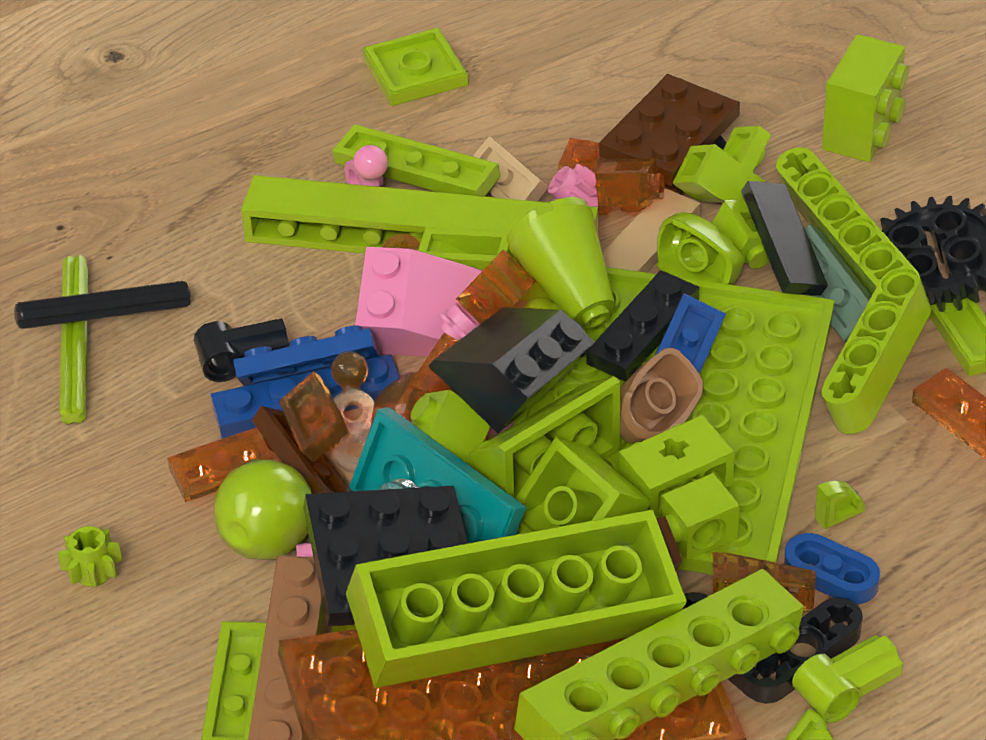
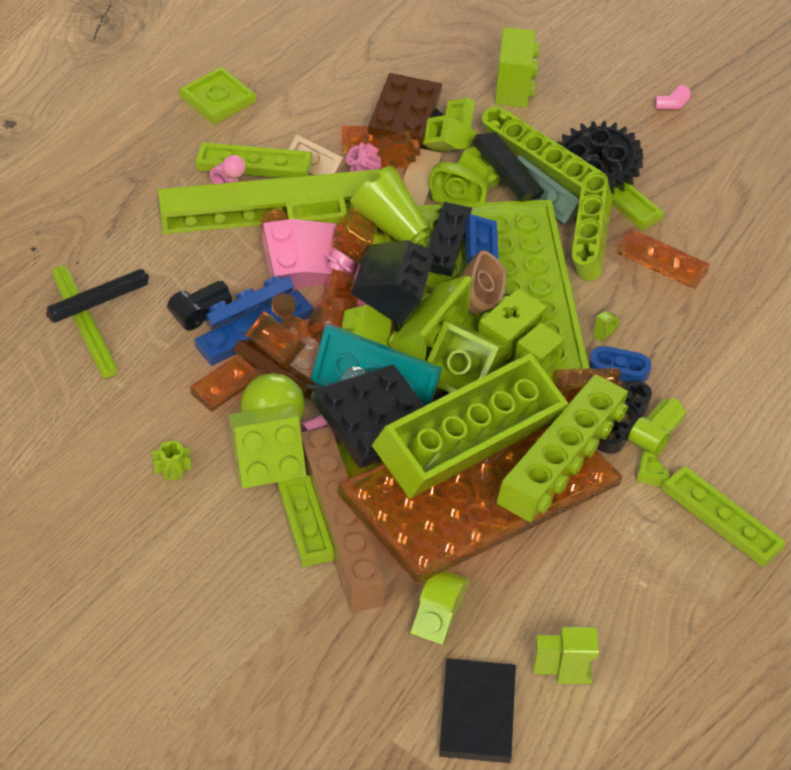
camera: 25 degrees left, 5 degrees up
(219, 563) = (267, 445): none -> lime brick

